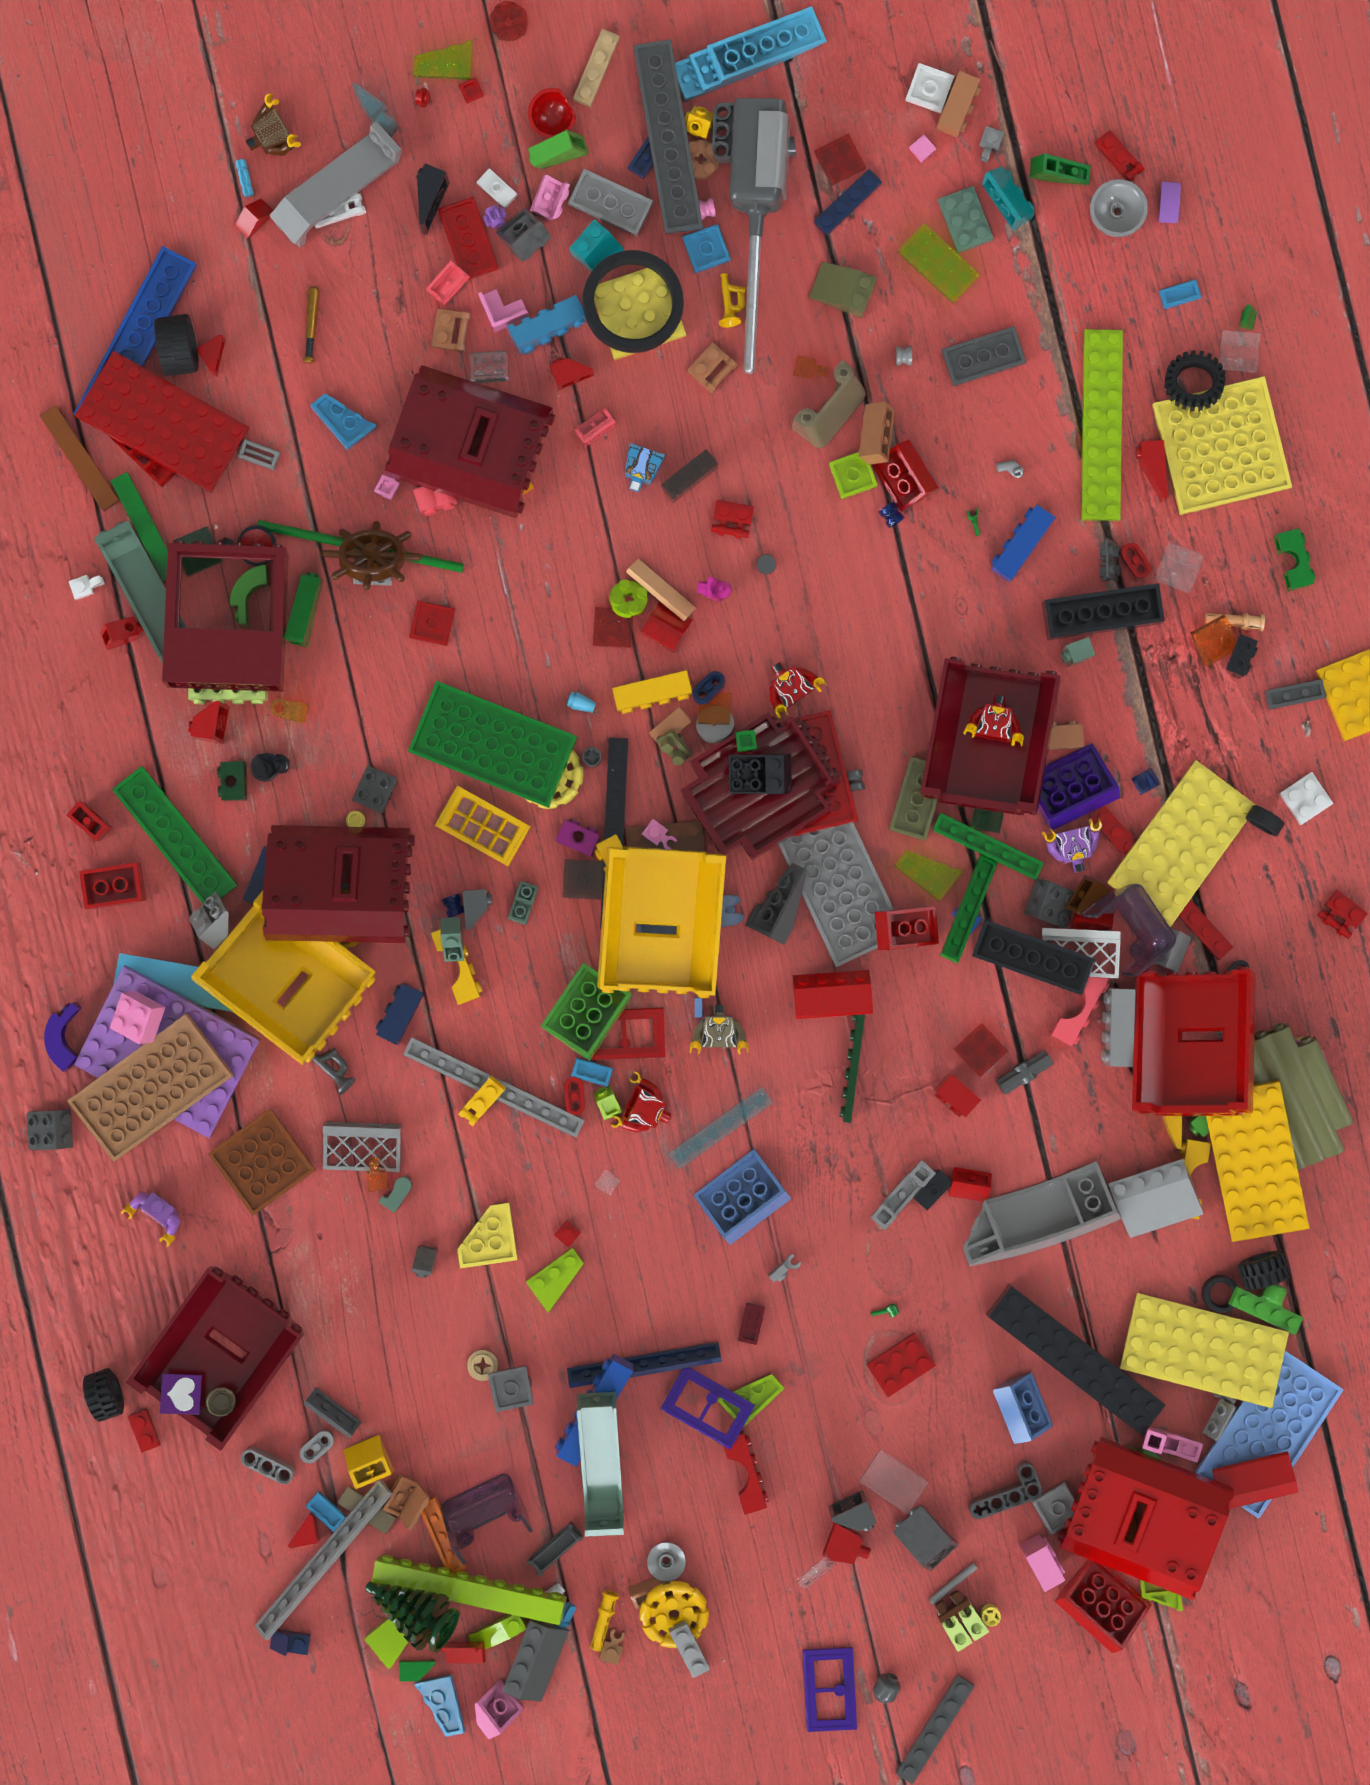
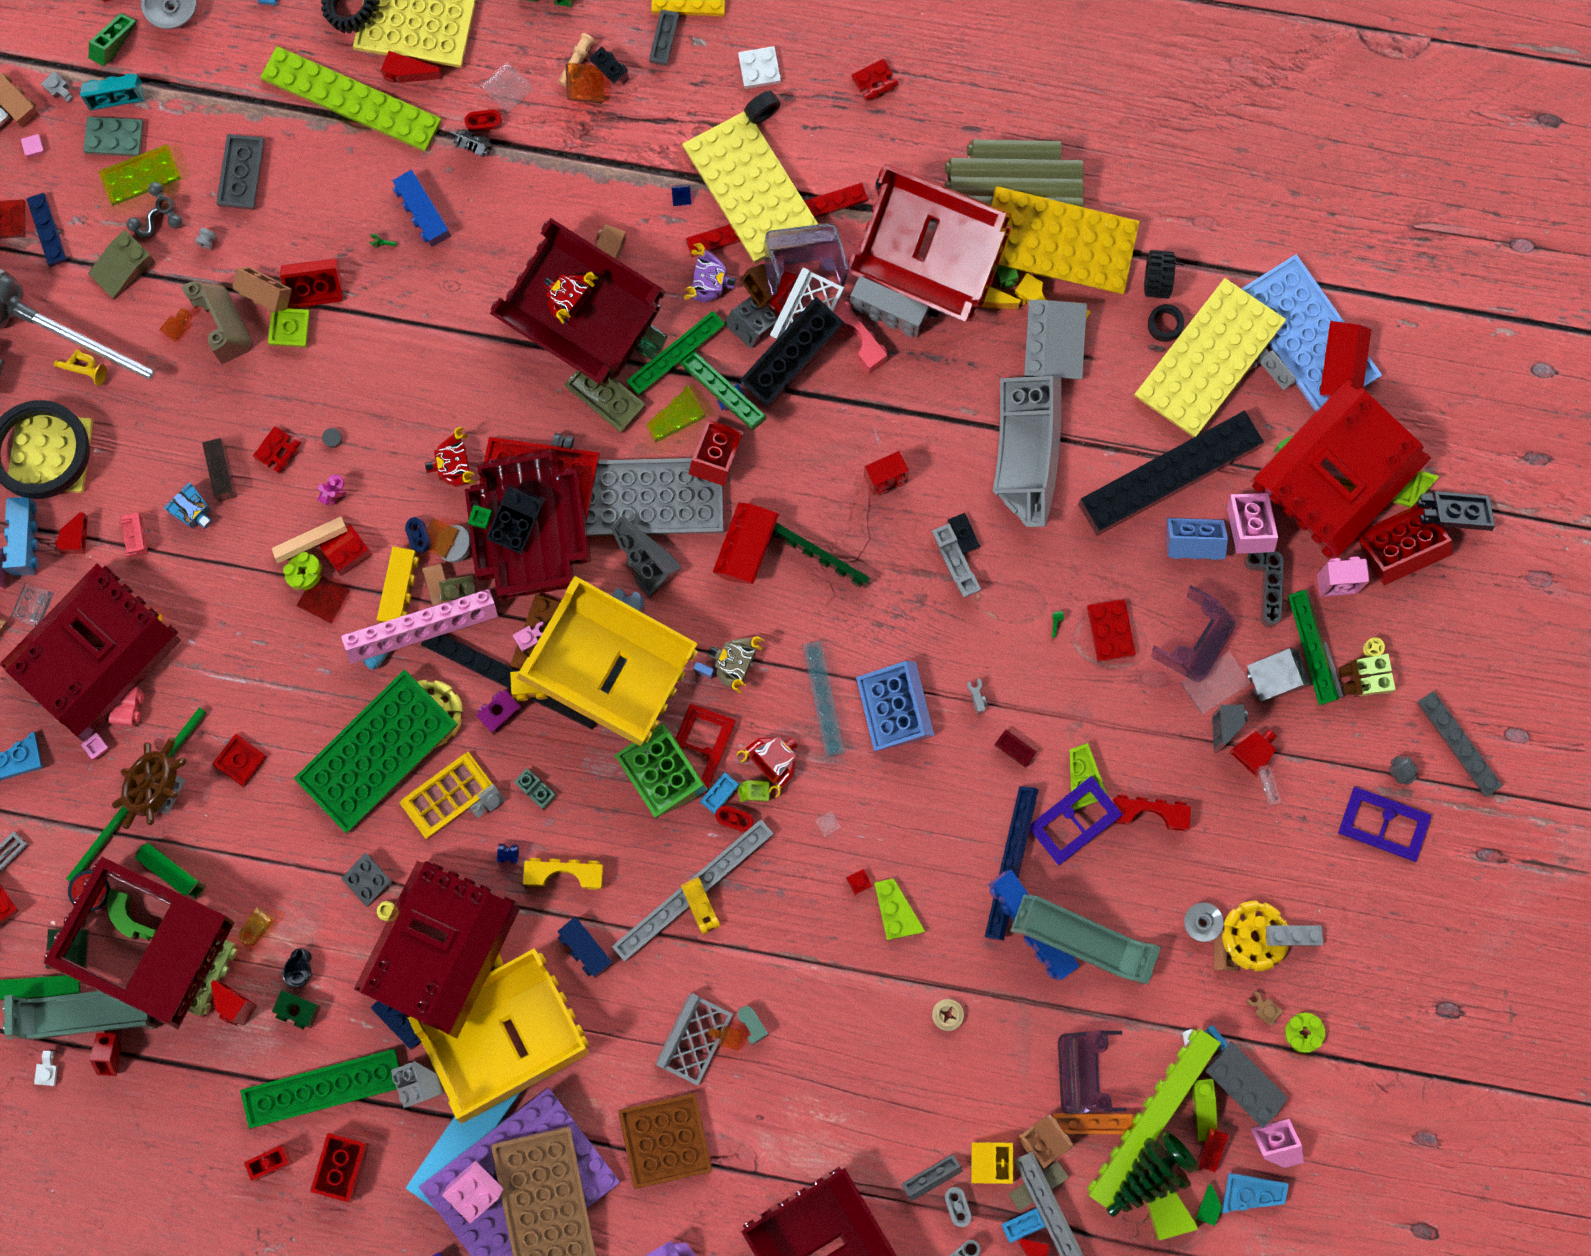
camera: 70 degrees left, 10 degrees down
(342, 1082) = (625, 1029): dark grey piece -> none
(424, 1261) = (826, 1024): flat silver slope -> none
(452, 939) = (537, 864): sand green slope -> none
(476, 906) = (516, 830): dark grey slope -> none
(490, 1239) = (832, 955): light yellow plate -> none
(494, 866) = (489, 798): none -> light grey plate
(511, 1388) = (980, 994): flat silver bracket -> none
(555, 1548) = (1148, 1021): dark grey container -> none
(582, 879) = (539, 724): clear smoke plate -> none
(592, 757) = (431, 663): dark grey wheel -> none
(605, 1612) = (1227, 999): yellow pin -> none
(611, 1682) = (1297, 1041): none -> lime plate
(623, 730) = (419, 626): none -> bright pink brick
(706, 248) = (24, 368): dark azure tile -> none
(707, 363) = (127, 411): nougat plate -> none
(888, 511) = (336, 309): clear blue wheel -> none
(902, 1460) = (1198, 661): none -> clear purple windscreen
(908, 318) = (174, 220): none -> dark grey piece
(966, 1559) = (1313, 647): none -> green plate
(970, 1184) = (973, 498): red panel -> none
(980, 1050) = (855, 437): clear red plate -> none
(1010, 466) = (349, 190): light grey arm -> none
(1024, 1072) = (893, 407): dark grey piece -> none
(1055, 1507) = (1299, 548): light grey plate -> none
(1058, 1456) = (1252, 523): none -> bright pink brick
(1076, 787) = (659, 252): dark purple slope -> none
(1077, 652) = (539, 201): sand green brick -> none
(1103, 611) = (514, 165): black brick -> none
(1156, 1642) = (1457, 510): none -> black tile
(1172, 1443) = (1283, 420): bright pink arch -> none
(1174, 957) = (847, 235): light grey panel -> none
(1267, 1307) = (1194, 287): bright green plate -> none

